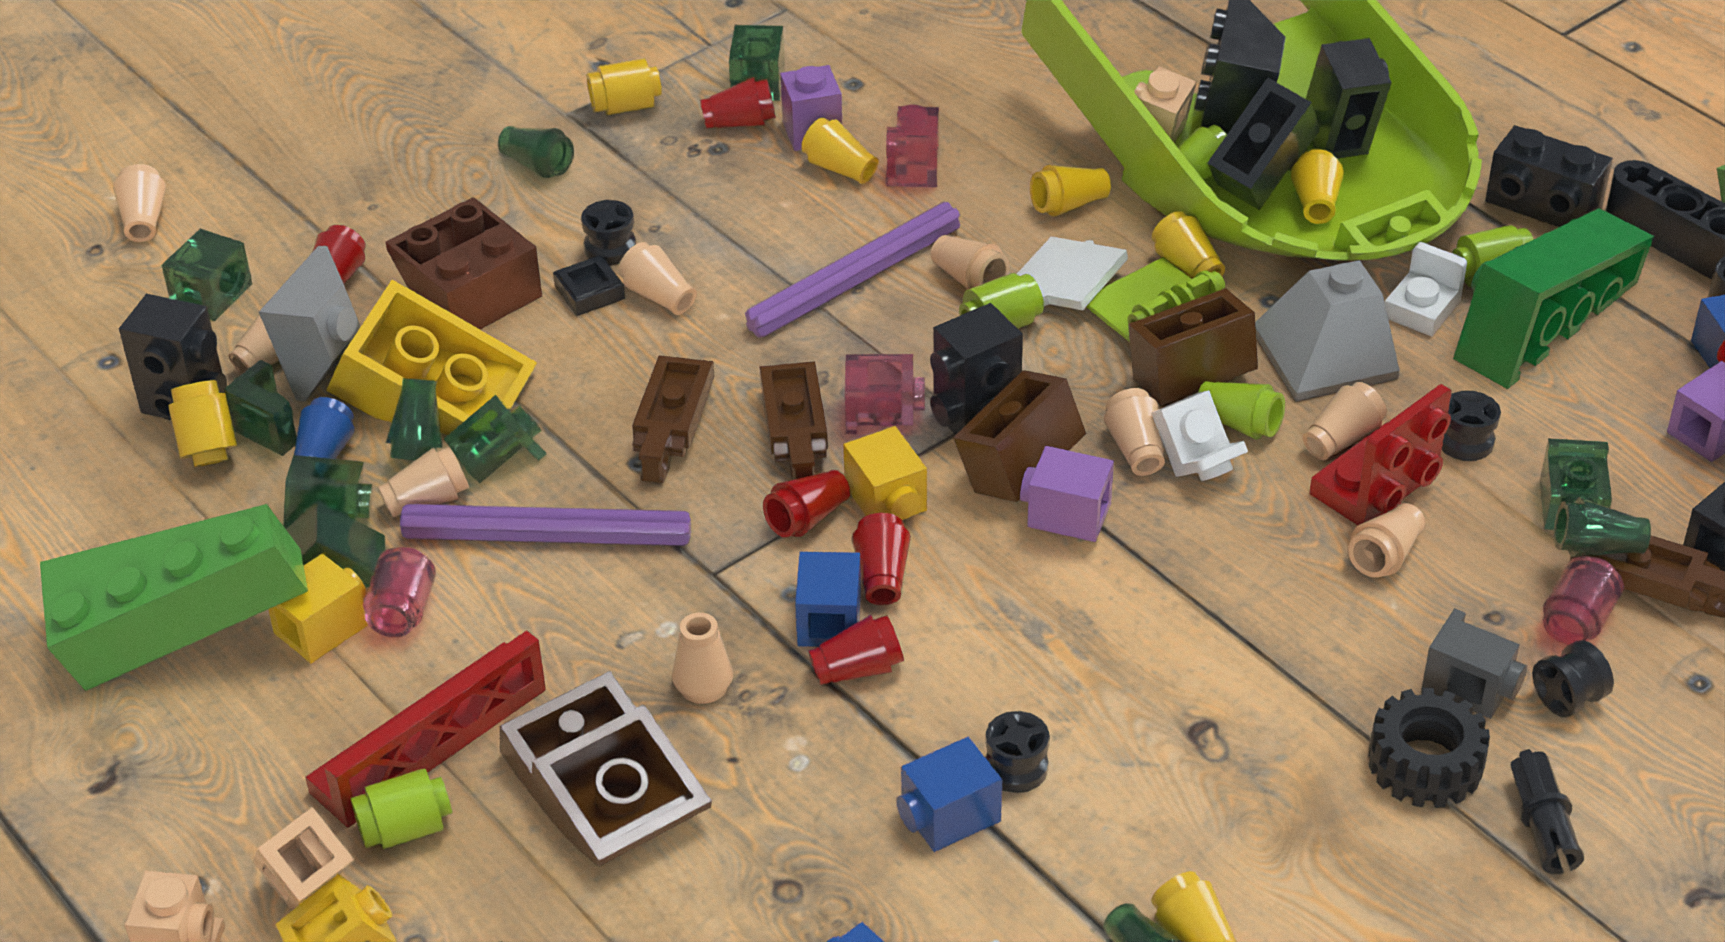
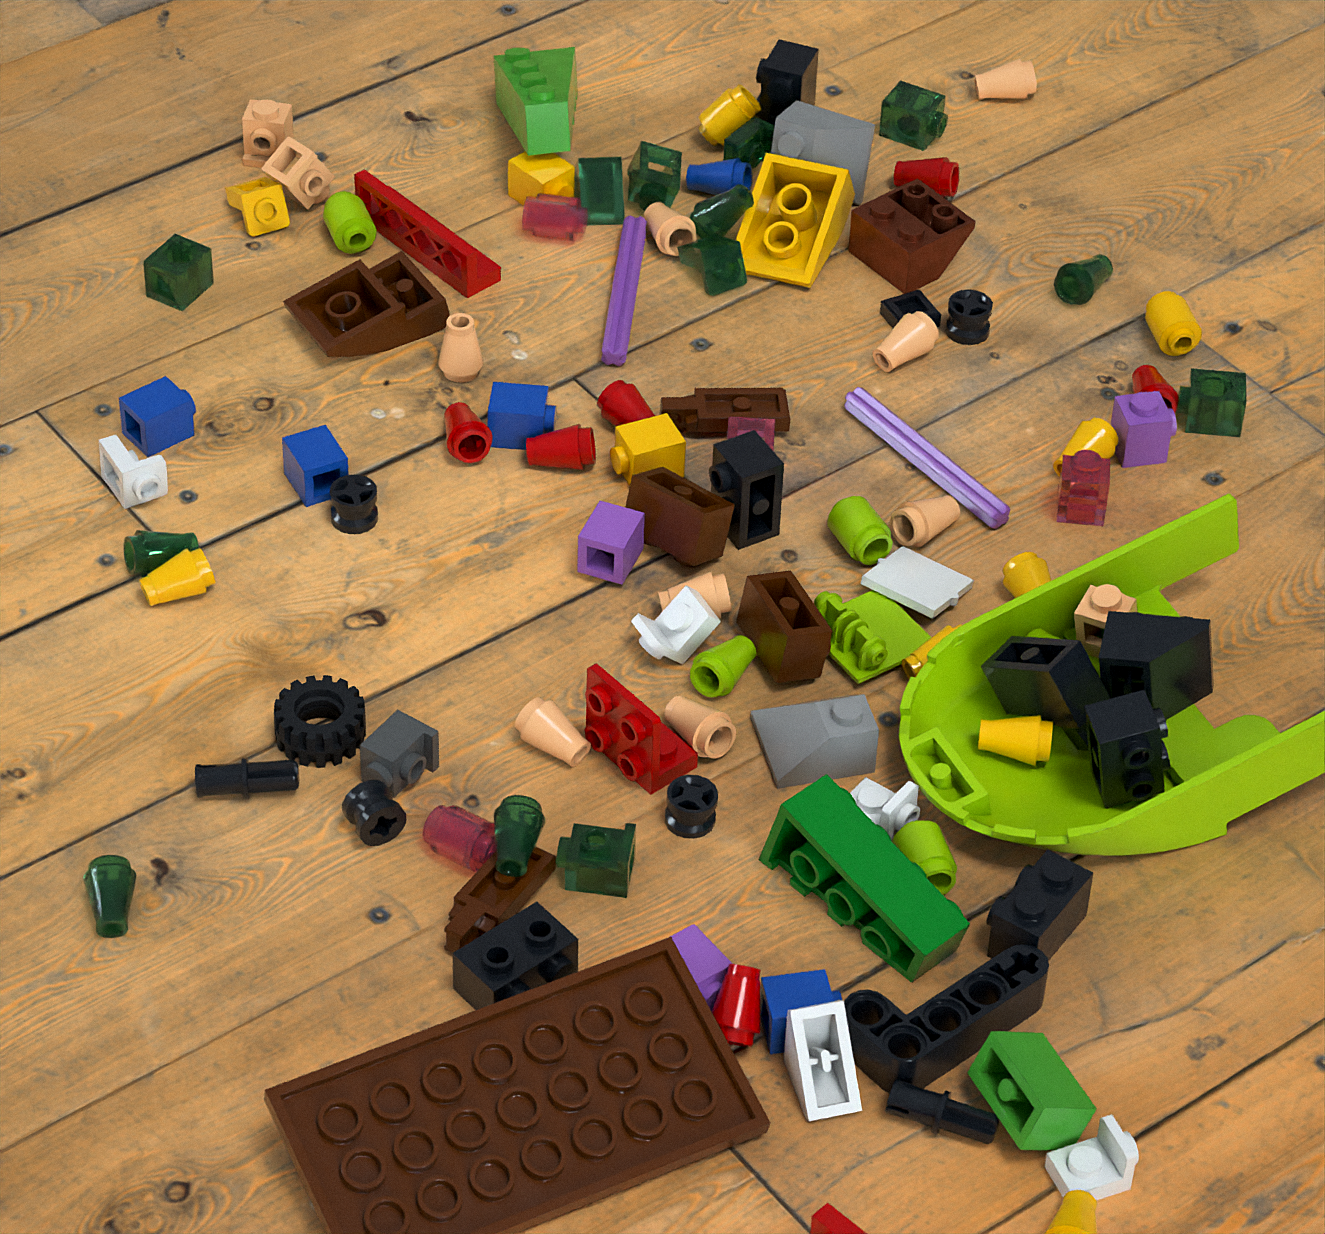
camera: 90 degrees right, 0 degrees up
(670, 413) = (739, 346): reddish brown hinge -> none

